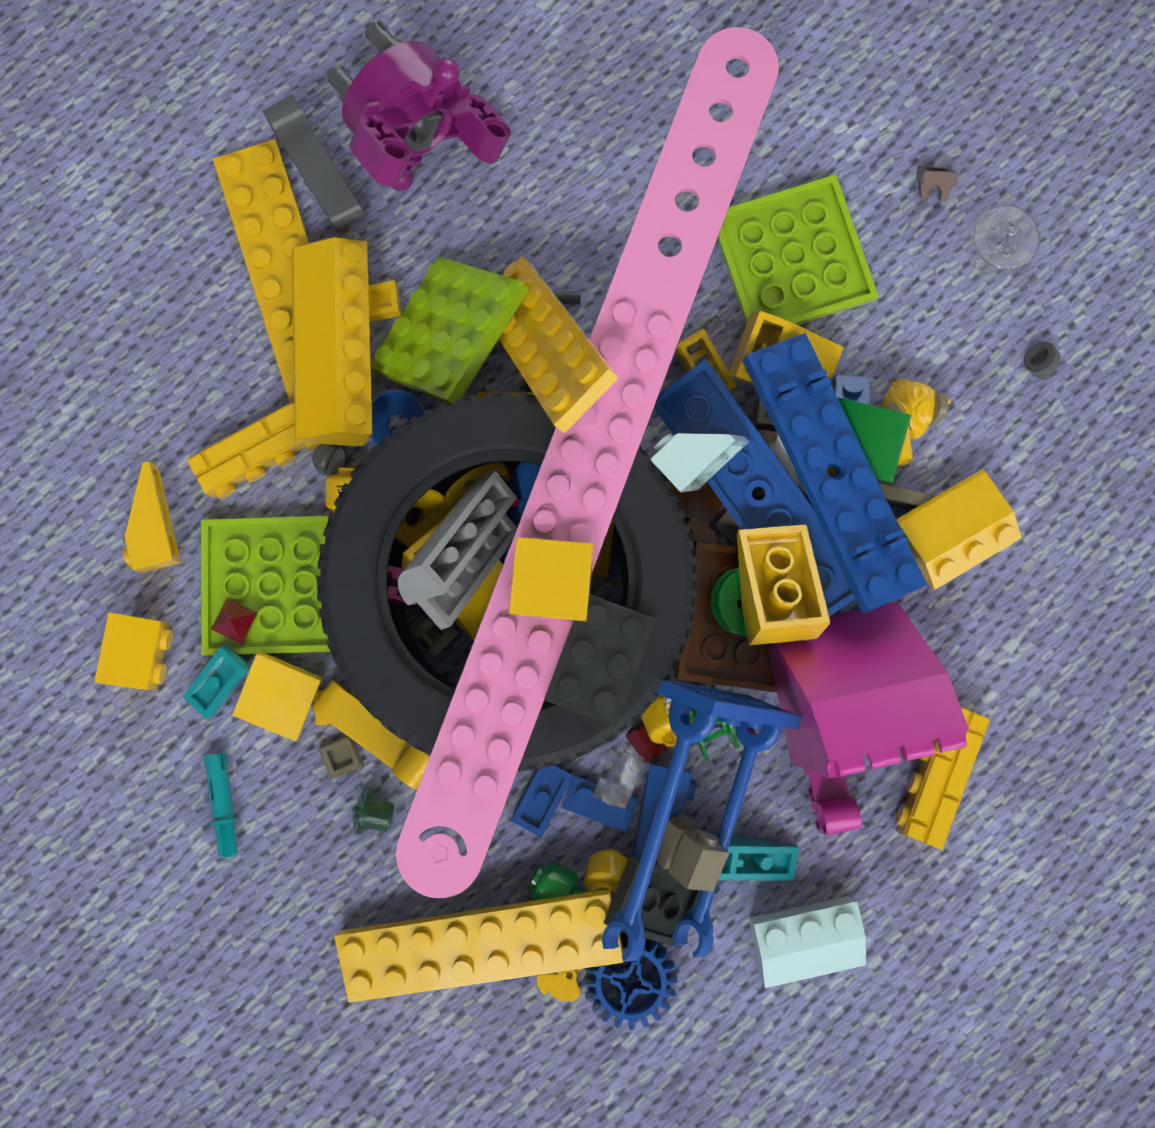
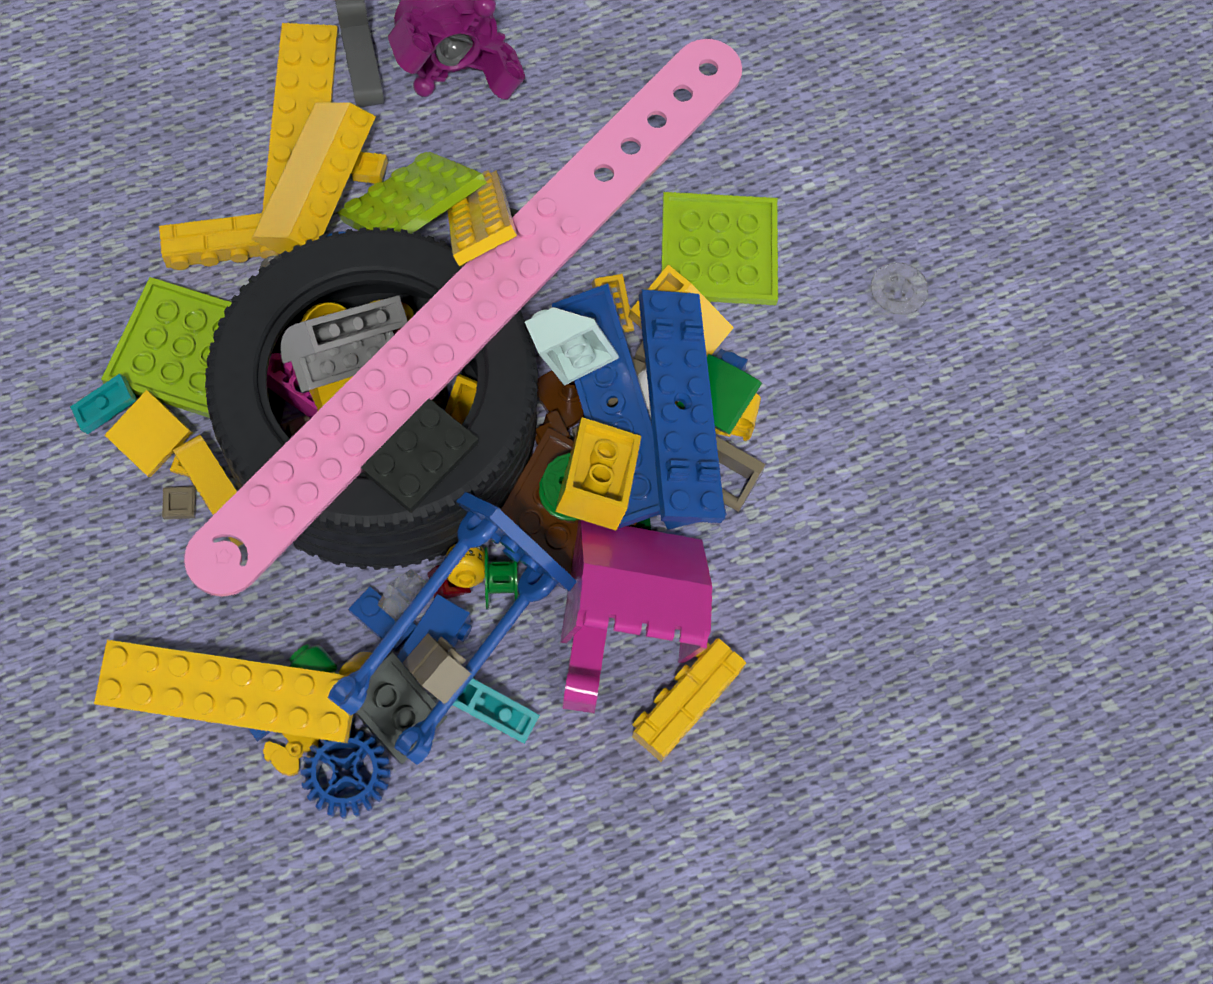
camera: 15 degrees right, 15 degrees down
(133, 652) = (46, 354): yellow slope -> none
(149, 529) = (105, 268): yellow slope -> none
(221, 804) = (61, 503): teal axle -> none
(234, 621) = (140, 361): dark red slope -> none
(371, 813) = (177, 551): clear green piece -> none
(542, 799) = (334, 594): blue plate -> none
(551, 579) = (405, 375): yellow tile -> none
(809, 941) = (516, 798): light aqua slope -> none
(919, 401) = (779, 394): yellow hair -> none
(941, 177) = (856, 226): tile -> none
(959, 528) = (774, 497): yellow slope -> none
(1042, 360) = (899, 397): dark grey tile -> none

